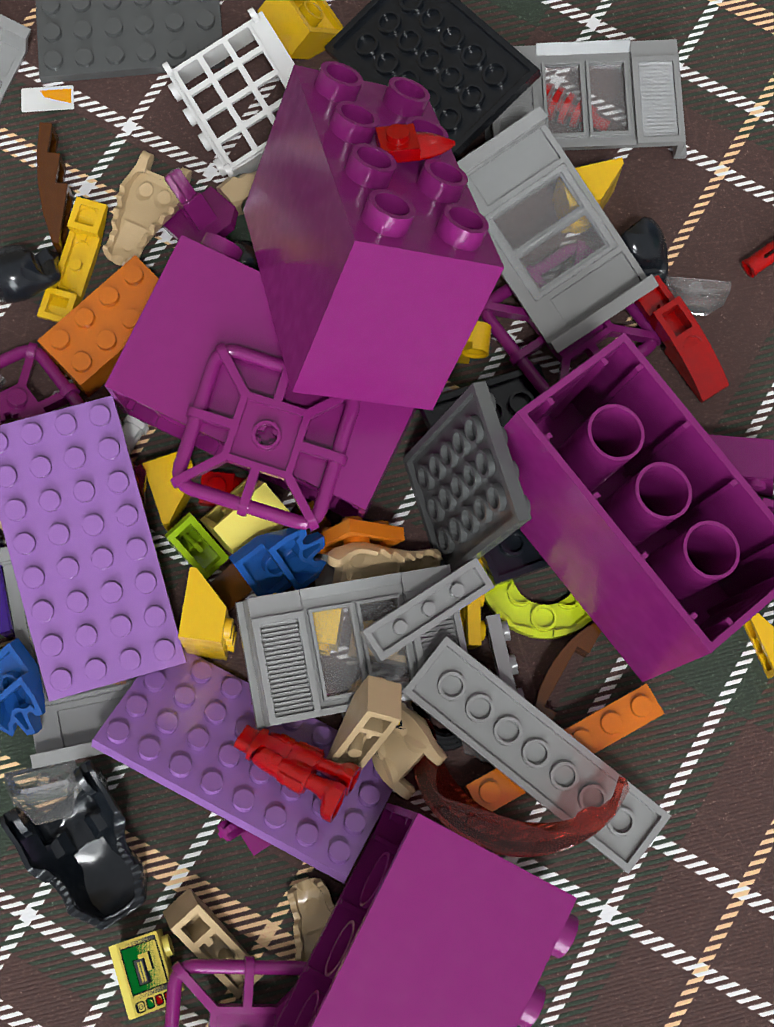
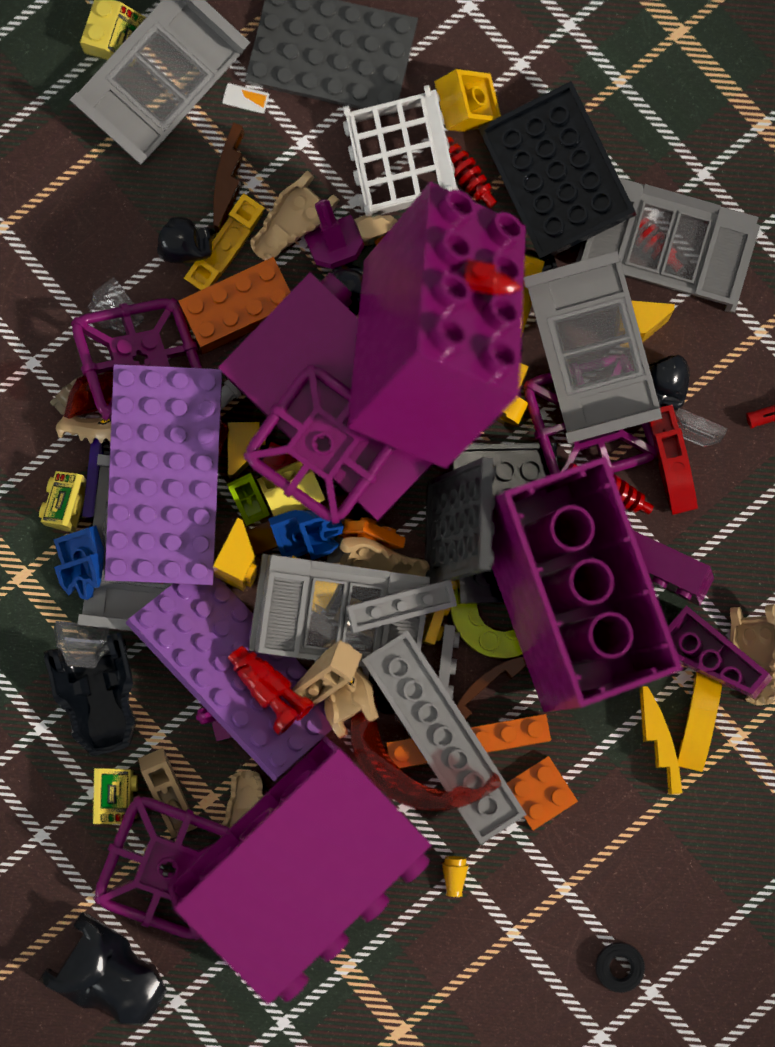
camera: 20 degrees right, 5 degrees up
(605, 921) = (454, 875): none -> yellow cone
(674, 781) = (541, 793): none -> orange plate

